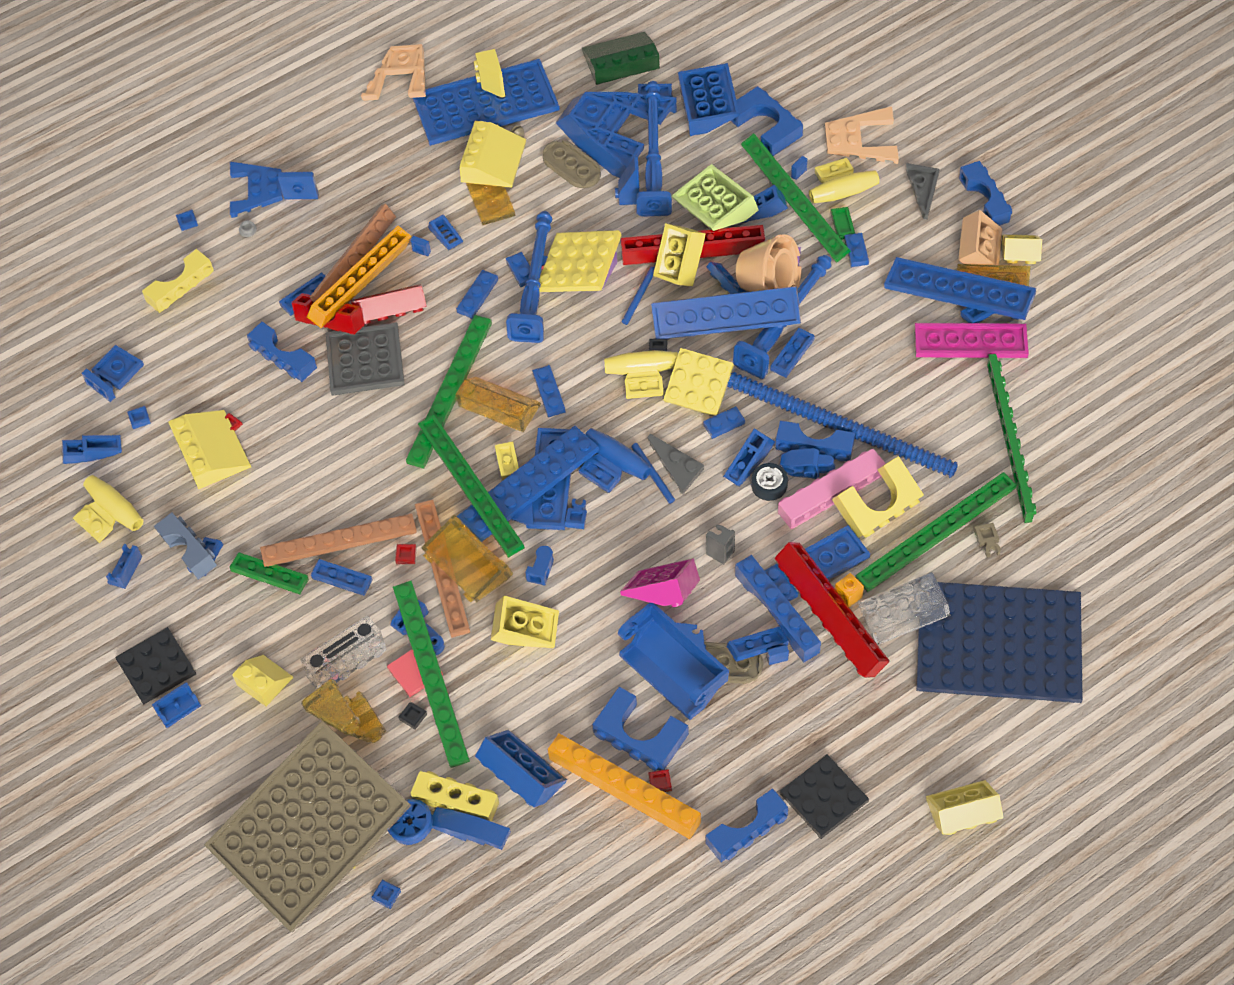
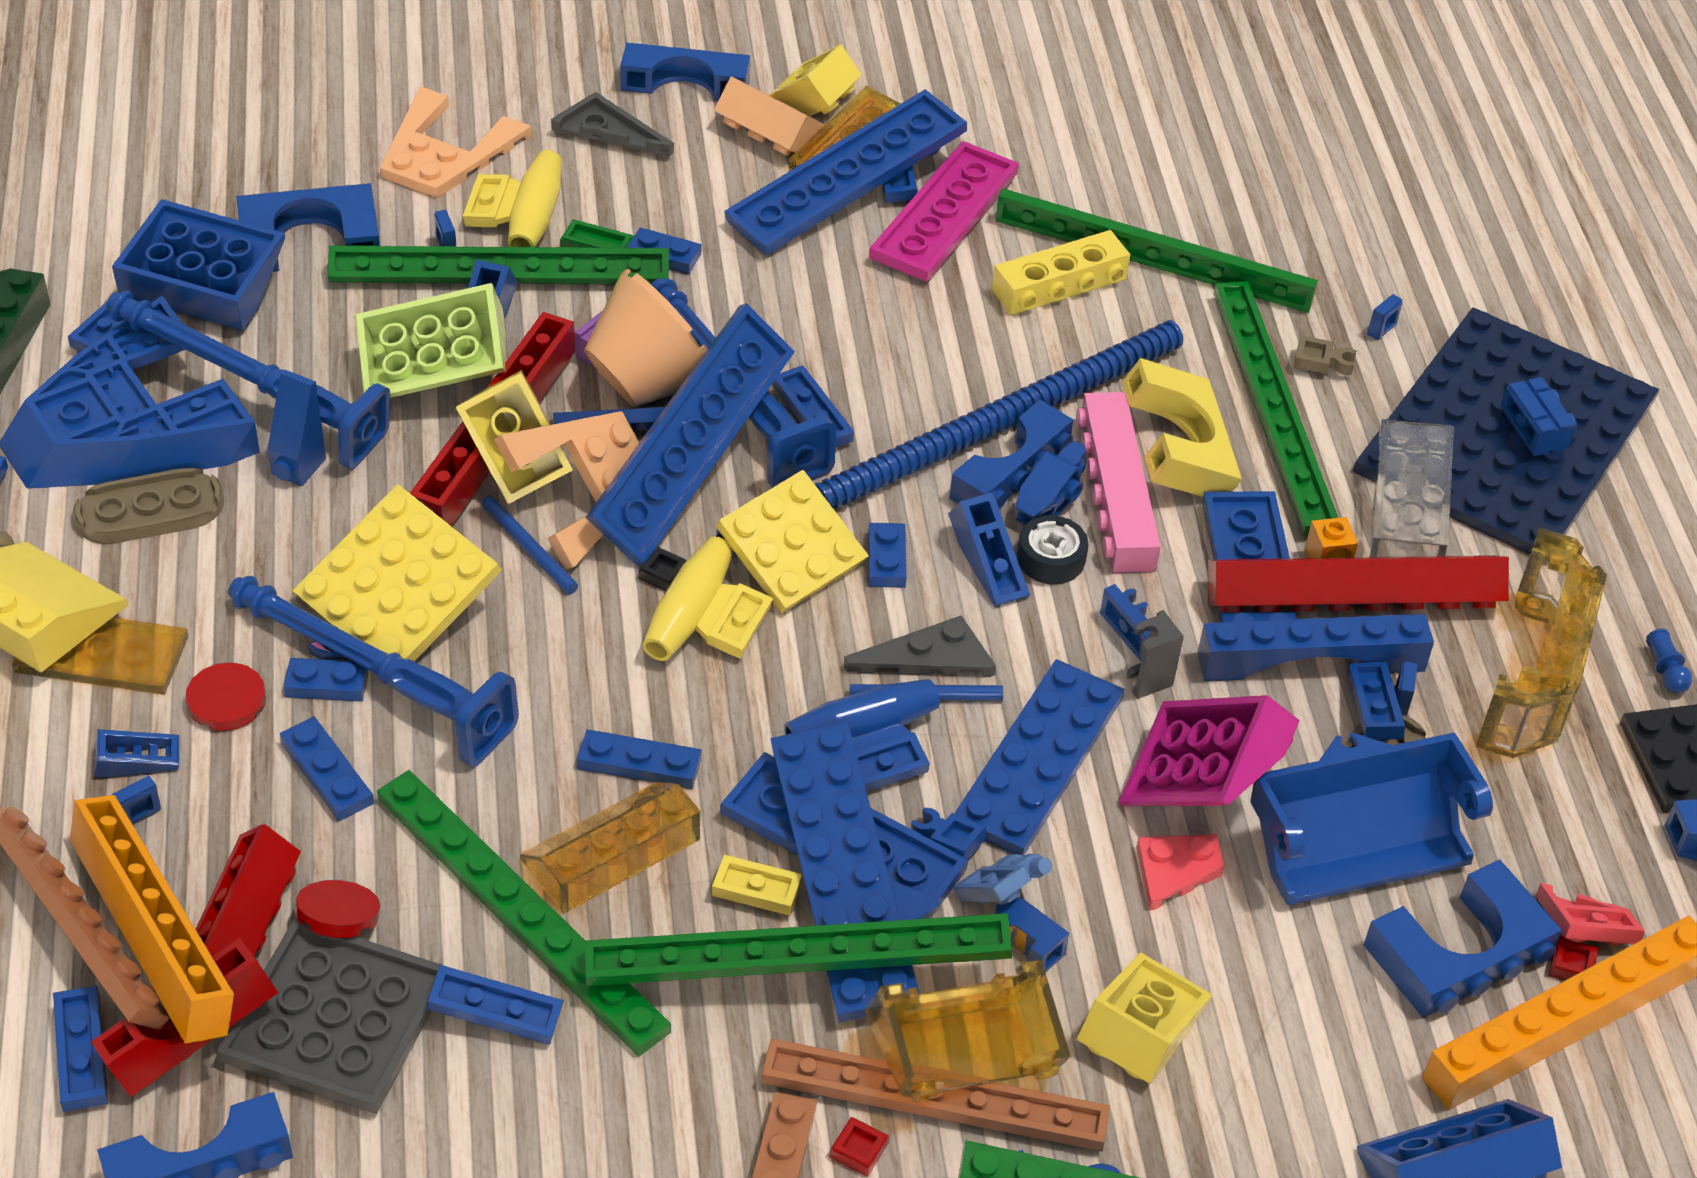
camera: 70 degrees left, 10 degrees down
(395, 404) = (494, 1004): none -> blue plate
(409, 332) = (337, 908): none -> red tile
(491, 243) = (225, 696): none -> red tile
(553, 538) = (1003, 879): none -> medium blue plate
(614, 605) = (1177, 864): none -> coral wing
(645, 530) = (1040, 756): none -> blue plate
(684, 777) = (1590, 918): none -> coral wing
(693, 285) = (598, 450): none -> light nougat wing
(746, 525) = (1125, 616): none -> blue plate
(830, 705) = (1566, 594): none -> clear yellow windscreen
(868, 770) = (1669, 662): none -> blue pin
(939, 389) = (1060, 272): none -> light yellow brick
(1002, 645) = (1538, 416): none -> blue brick
(1038, 554) = (1385, 317): none -> blue tile

